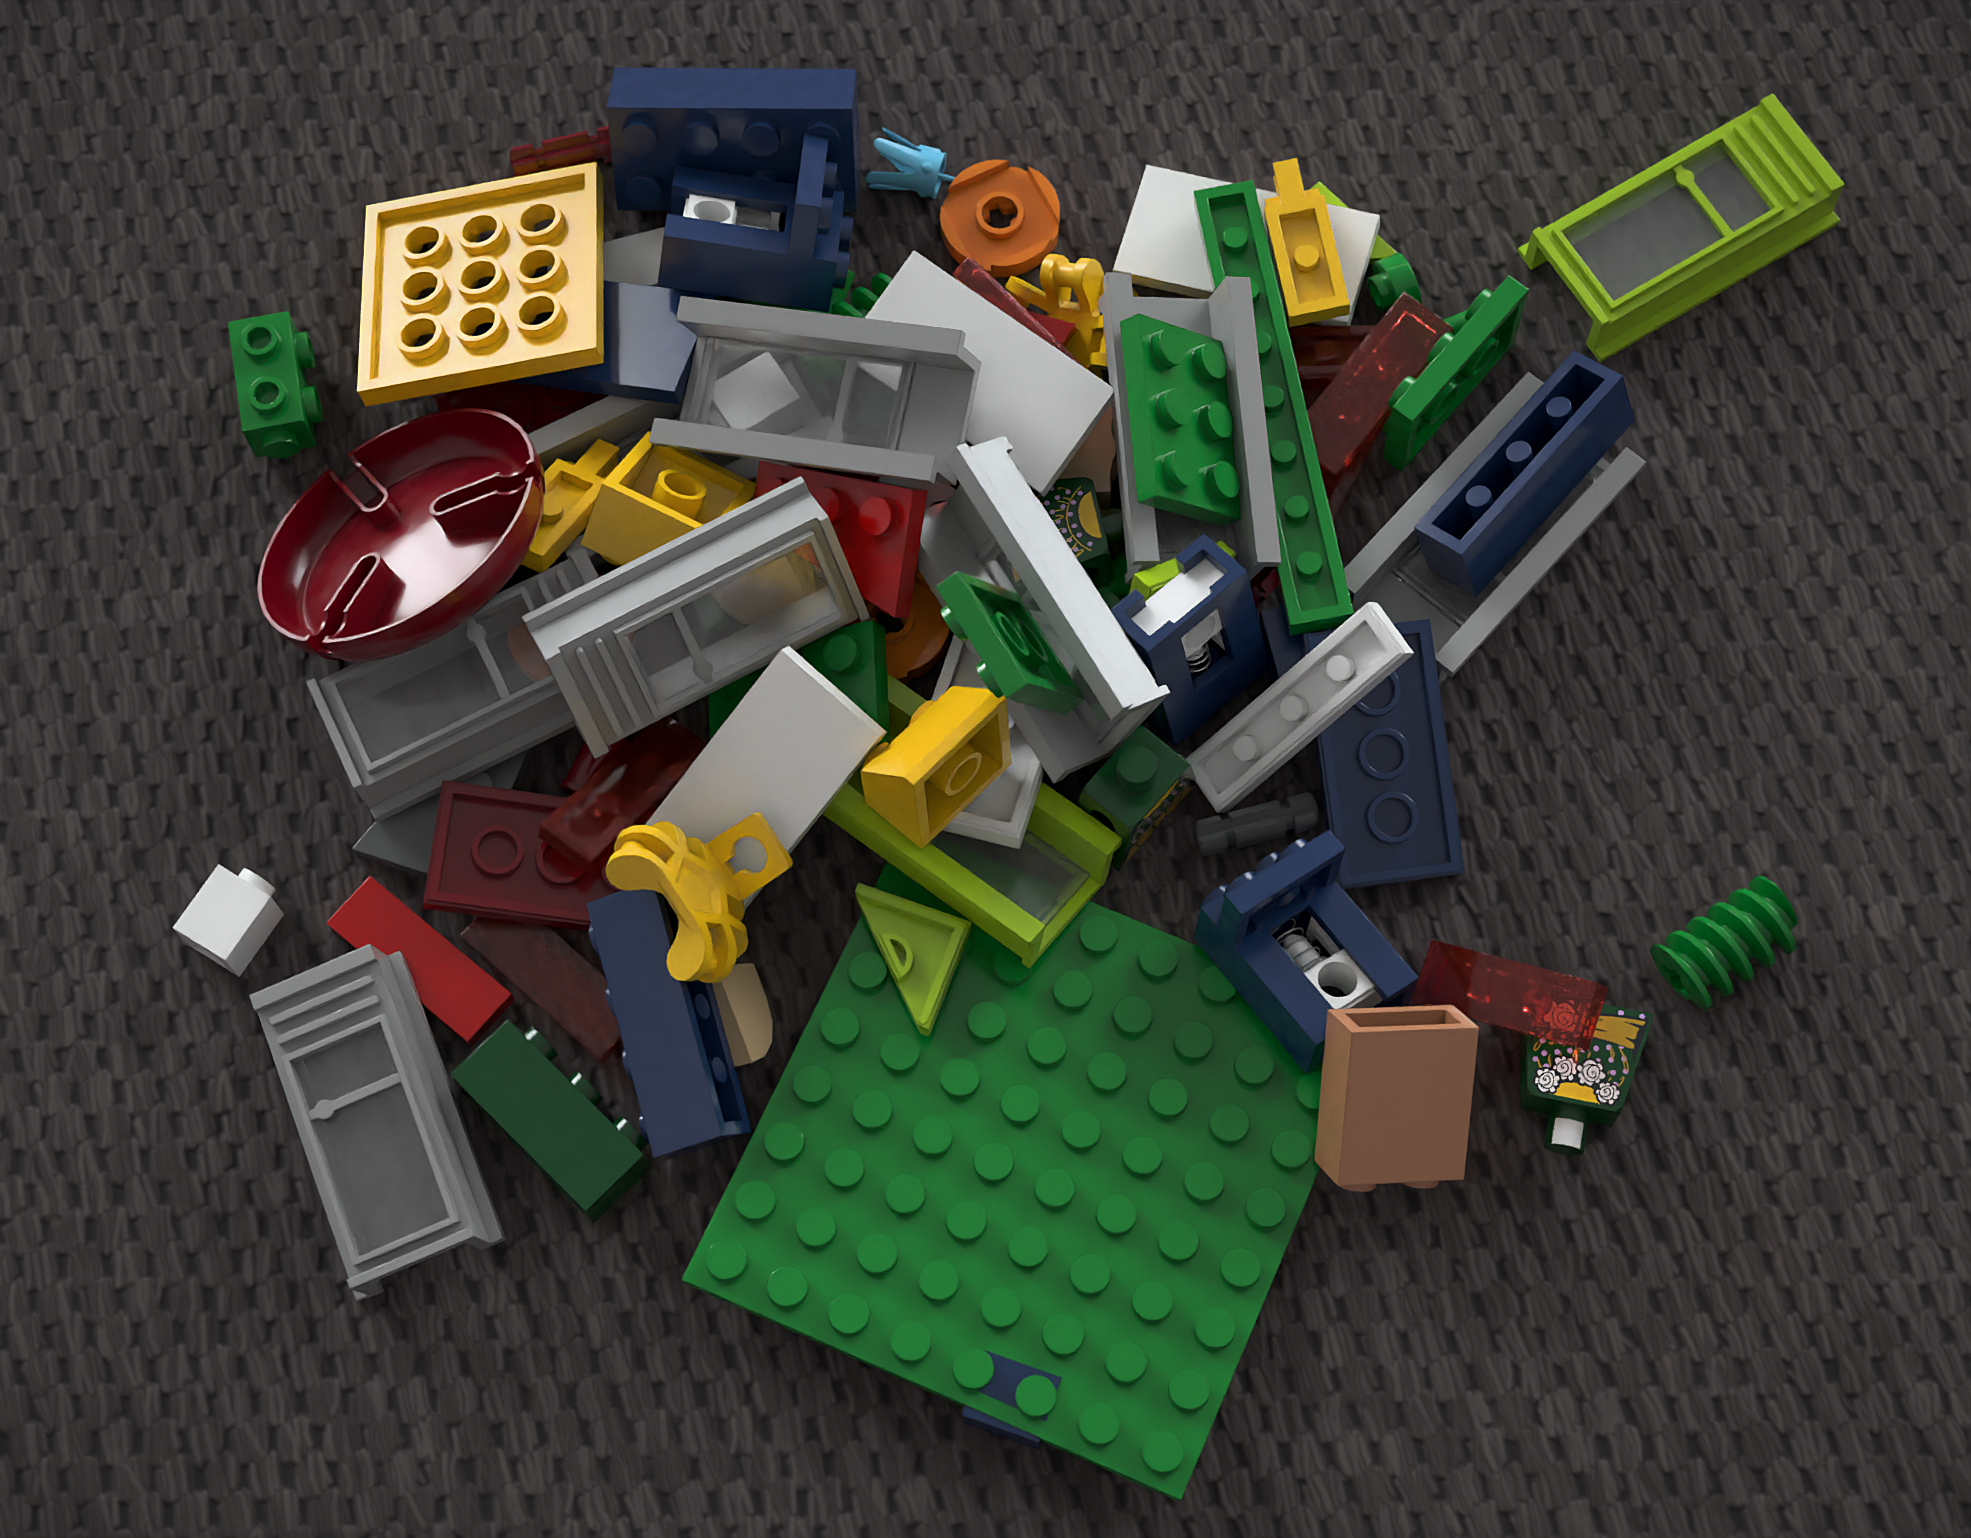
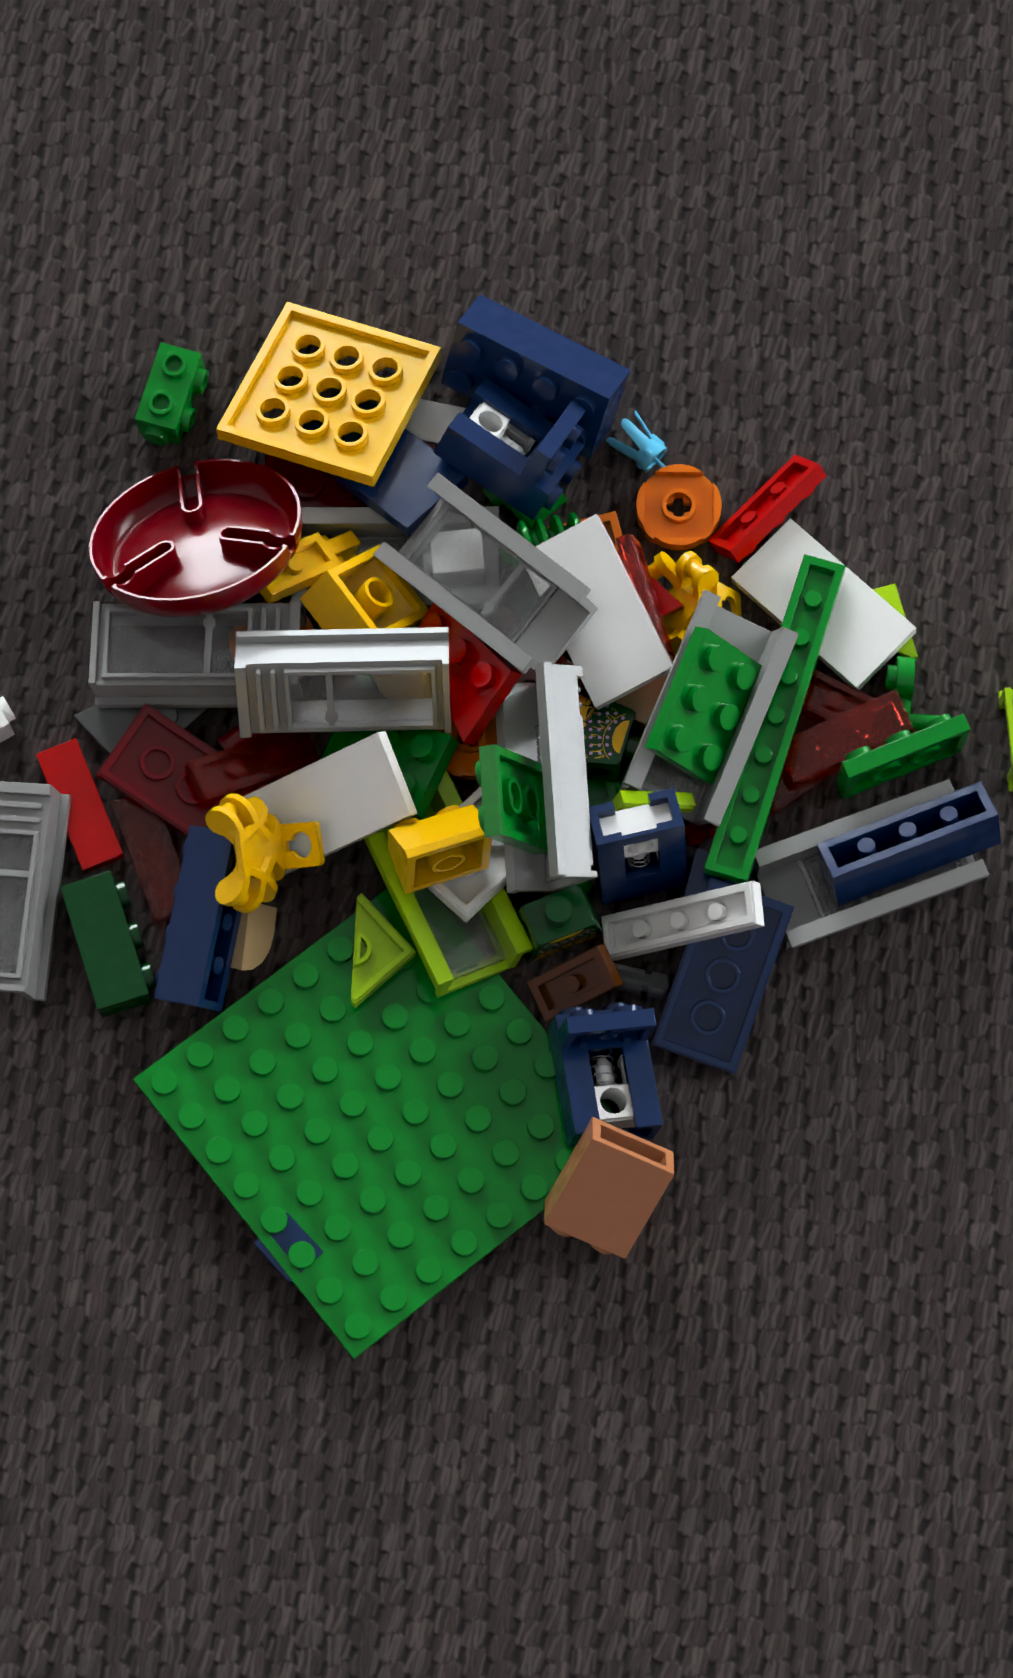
camera: 25 degrees right, 5 degrees up
(561, 152) = (422, 325): dark red axle -> none
(1111, 167) = (767, 508): none -> red plate
(1199, 857) = (575, 982): none -> reddish brown plate
(1304, 249) = (852, 627): yellow hinge -> none
(1511, 995) = (713, 1163): clear red tile -> none
(1580, 1084) = (735, 1226): torso -> none
(1727, 942) = (868, 1200): green piece -> none

